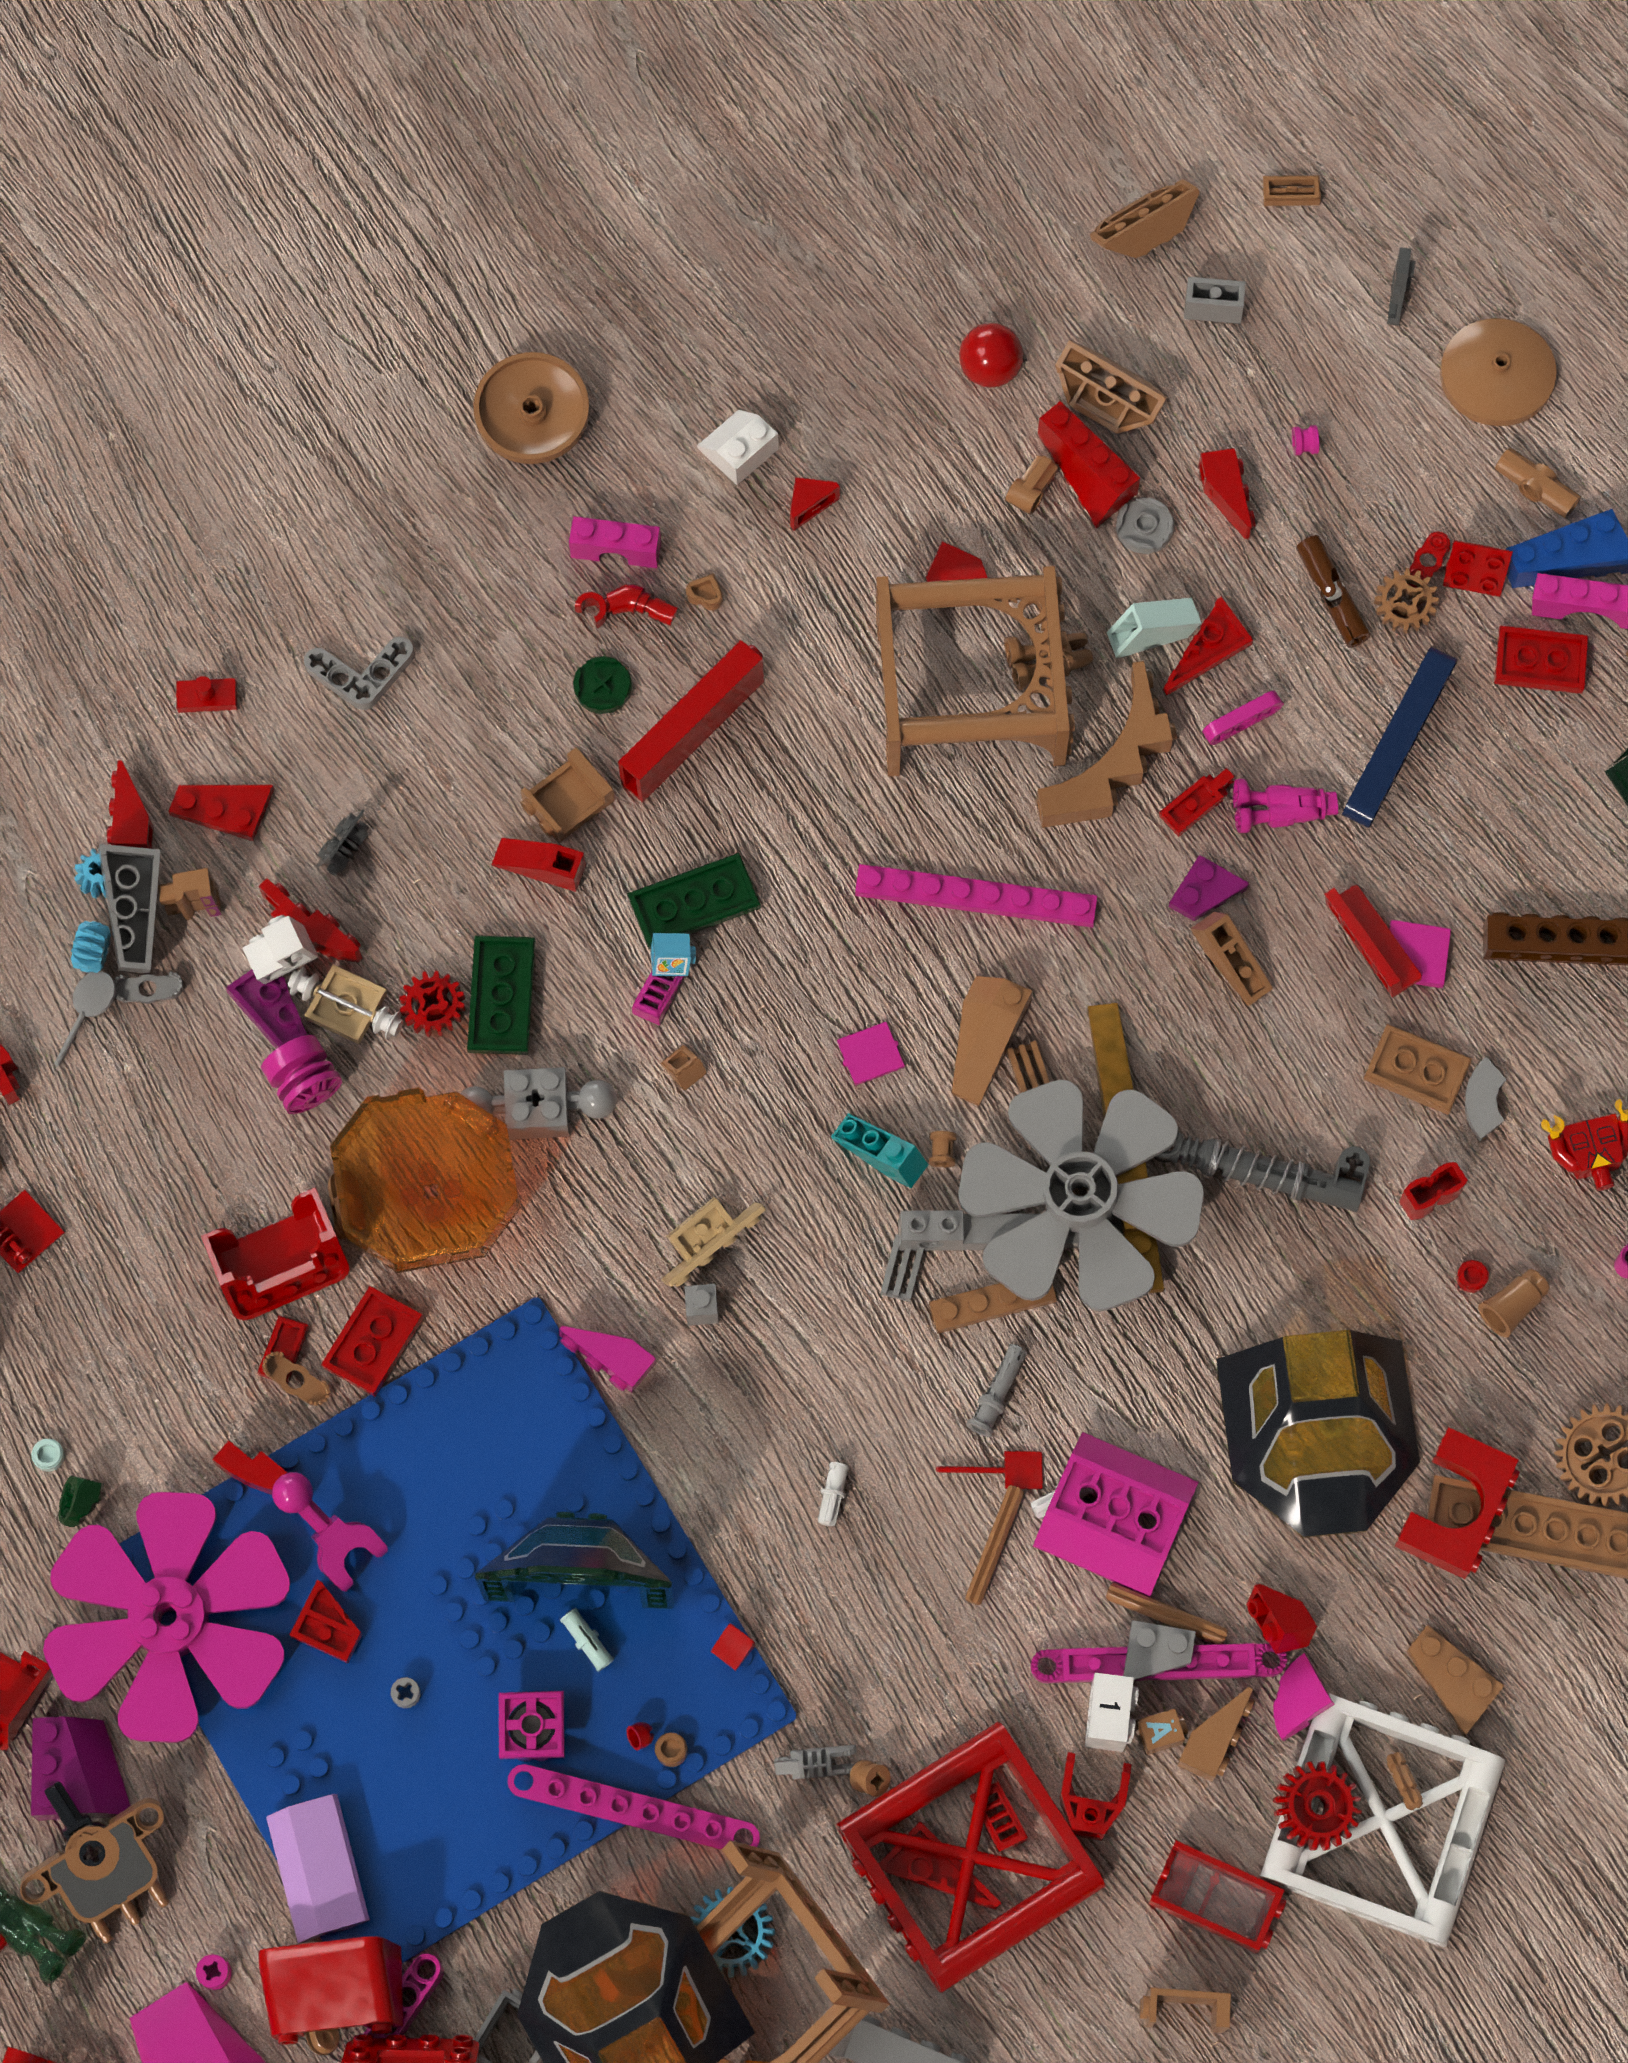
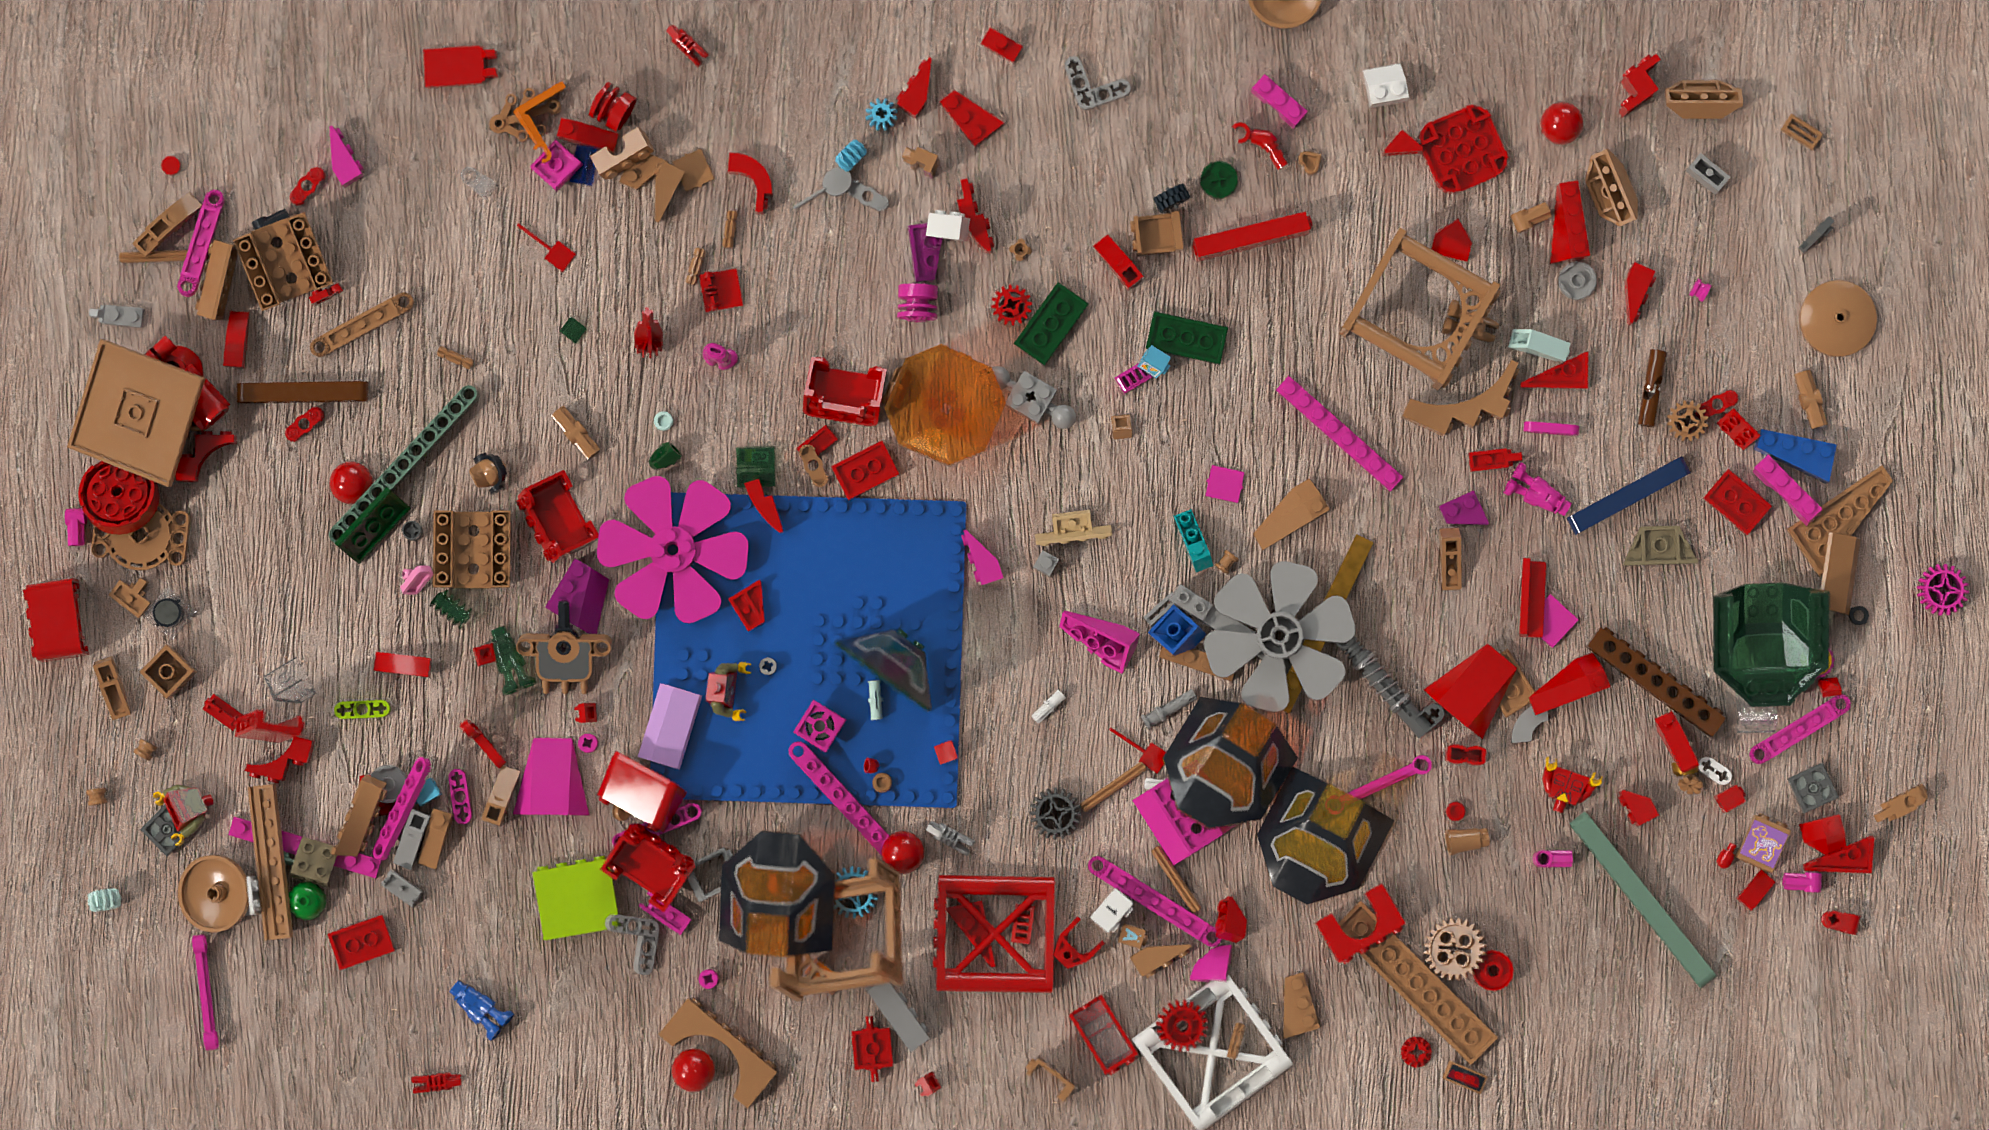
camera: 35 degrees right, 15 degrees up
(65, 1309) = (716, 353): none -> dark pink piece
(131, 896) = (888, 144): light grey wedge -> none
(185, 1929) = (587, 713): none -> red tile
(211, 1427) = (754, 464): none -> clear green slope
(333, 1536) = (781, 563): dark pink piece -> none
(345, 1004) = (966, 275): tan plate -> none
(351, 836) = (1012, 183): dark grey hinge -> none
(360, 1765) = (722, 689): none -> torso
(397, 920) = (1015, 249): none -> medium nougat plate
(555, 738) = (1171, 198): none -> black wheel
(766, 1823) = (903, 852): none -> red piece
(852, 1353) = (1106, 639): none -> dark pink wedge
(870, 1778) = (971, 863): medium nougat wheel -> none
(890, 460) = (1463, 149): none -> red tile
(939, 1277) = (1177, 631): none -> blue slope
(952, 1643) = (1039, 818): none -> dark grey gear
(1023, 1050) = (1305, 535): medium nougat tile -> none
(1054, 249) = (1639, 84): none -> red bracket
(1127, 1404) = (1227, 763): none -> windscreen
(1157, 1649) = (1157, 895): light grey wing -> none
(1362, 1280) = (1390, 779): none -> dark pink piece
(1382, 1099) = (1474, 688): none -> red wedge
(1486, 774) = (1659, 547): none -> dark tan wing
(1503, 1009) = (1575, 681): none -> red wedge

